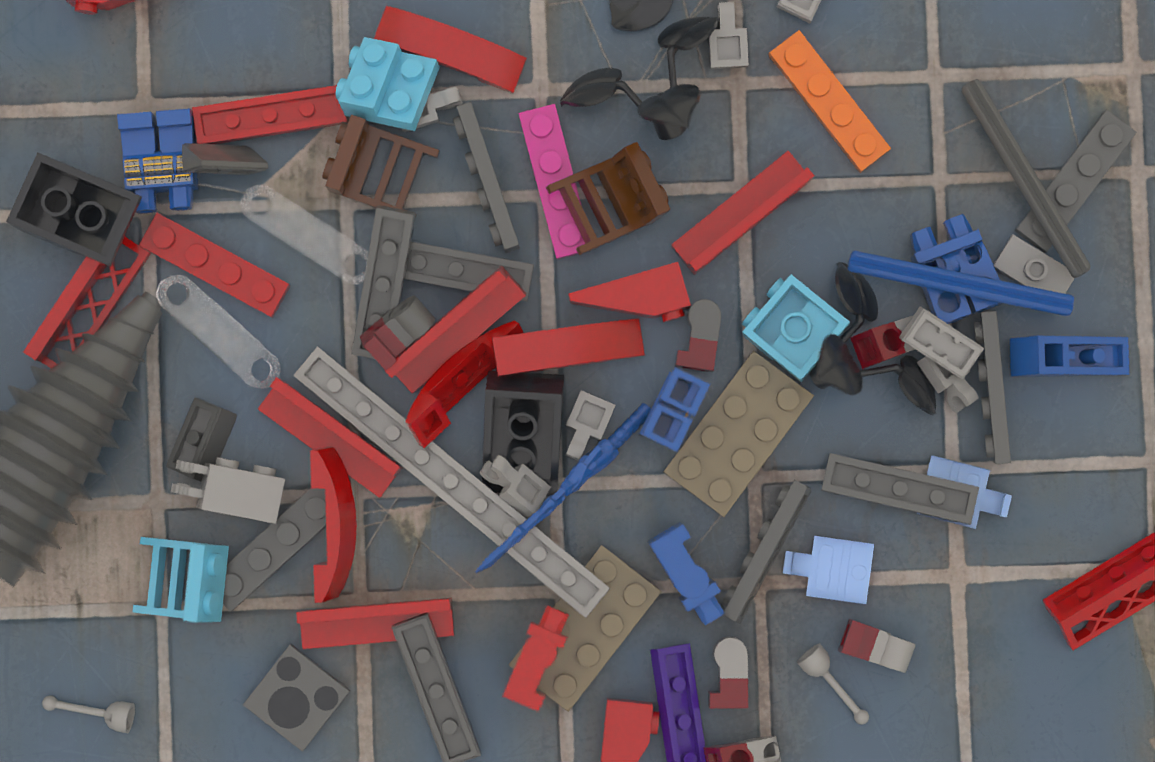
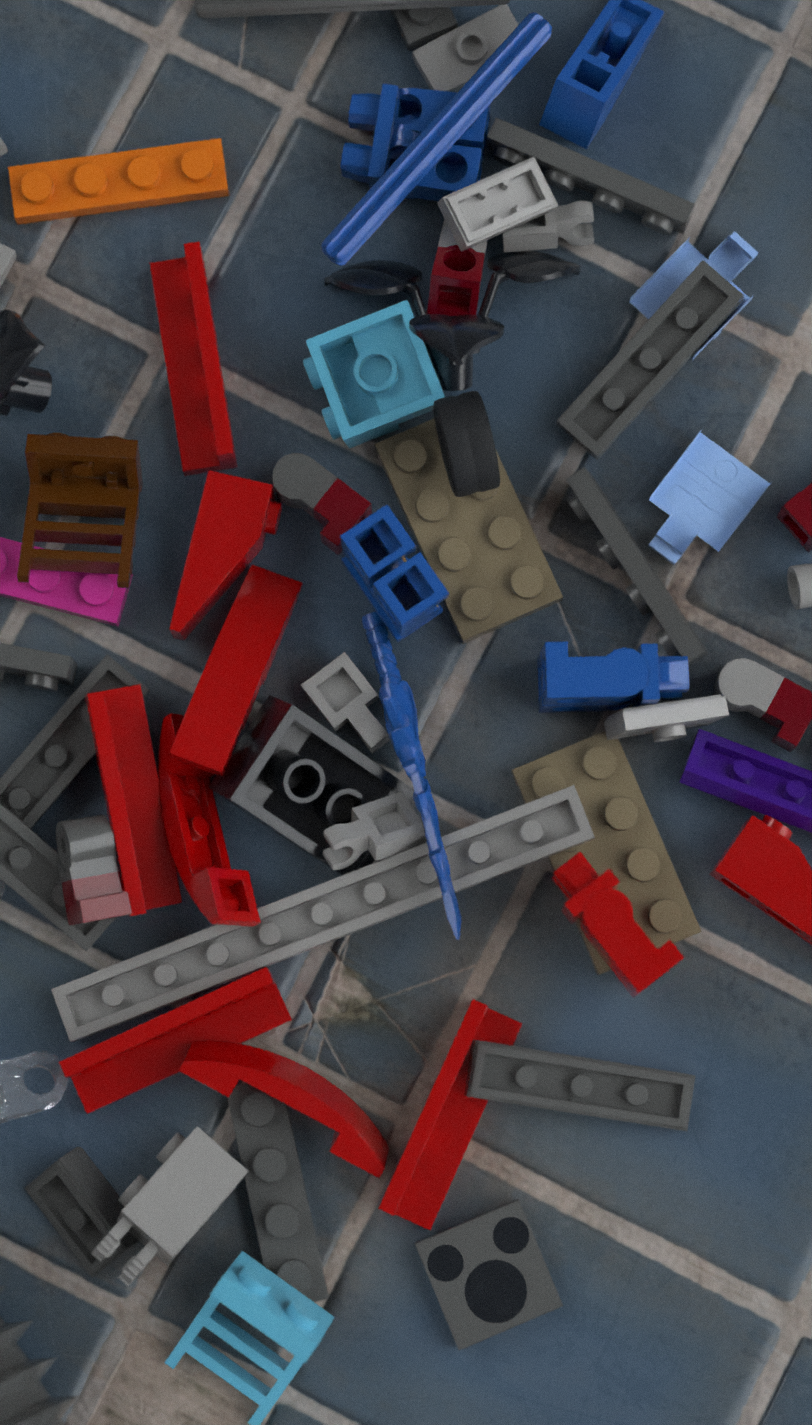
camera: 60 degrees left, 5 degrees down
(681, 620) = (666, 720): none -> light grey plate
(779, 408) = (466, 443): none -> black tyre

